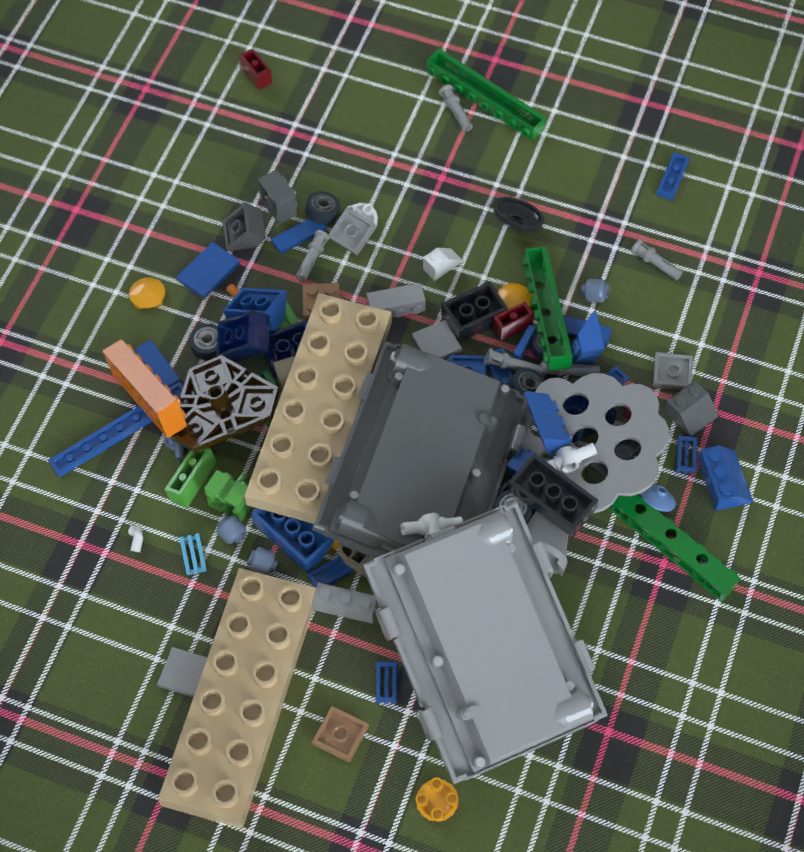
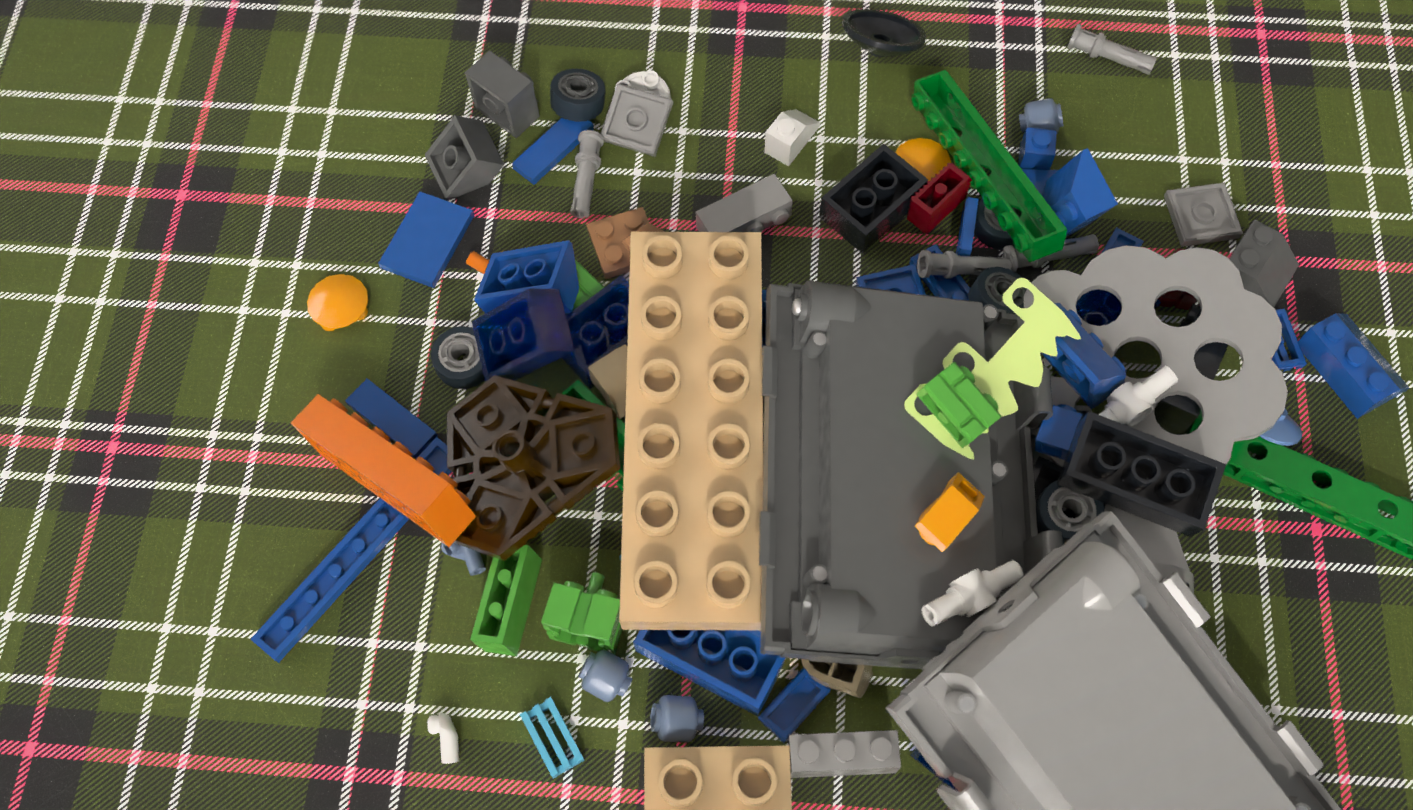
camera: 15 degrees left, 5 degrees up
(434, 481) = (949, 512): none -> light orange slope
(437, 340) = (829, 258): light grey tile -> none
(460, 428) = (959, 404): none -> bright green brick
(483, 424) = (1015, 361): none -> yellowish green piece
(584, 307) = (1037, 149): none -> blue brick

